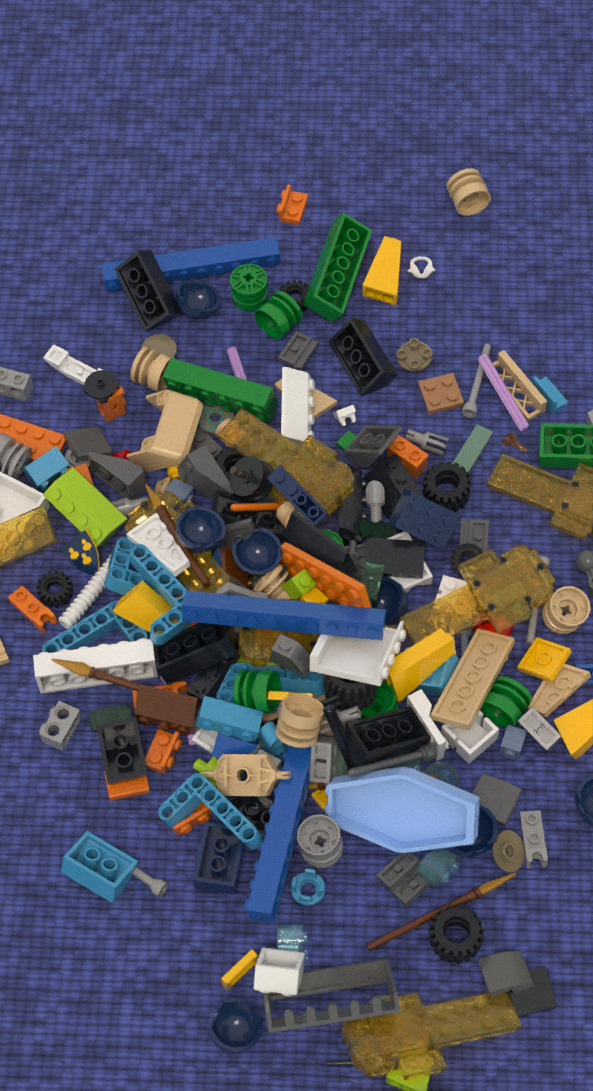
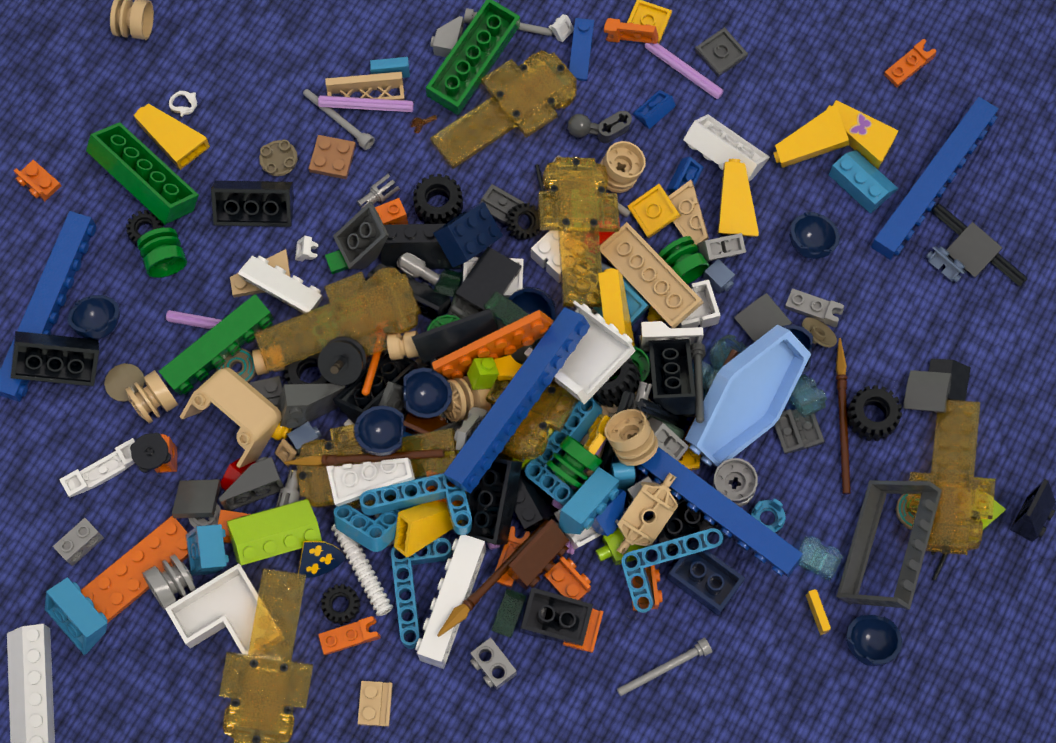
camera: 65 degrees left, 10 degrees up
(98, 866) = (659, 691): dark azure slope -> none
(249, 287) = (113, 273): green wheel -> none
(279, 971) = (850, 575): white piece -> none
(290, 656) = (560, 413): flat silver slope -> none
(297, 496) = (395, 326): dark blue slope -> none
(298, 351) = (209, 256): dark grey plate -> none
(473, 447) = (407, 160): sand green tile -> none

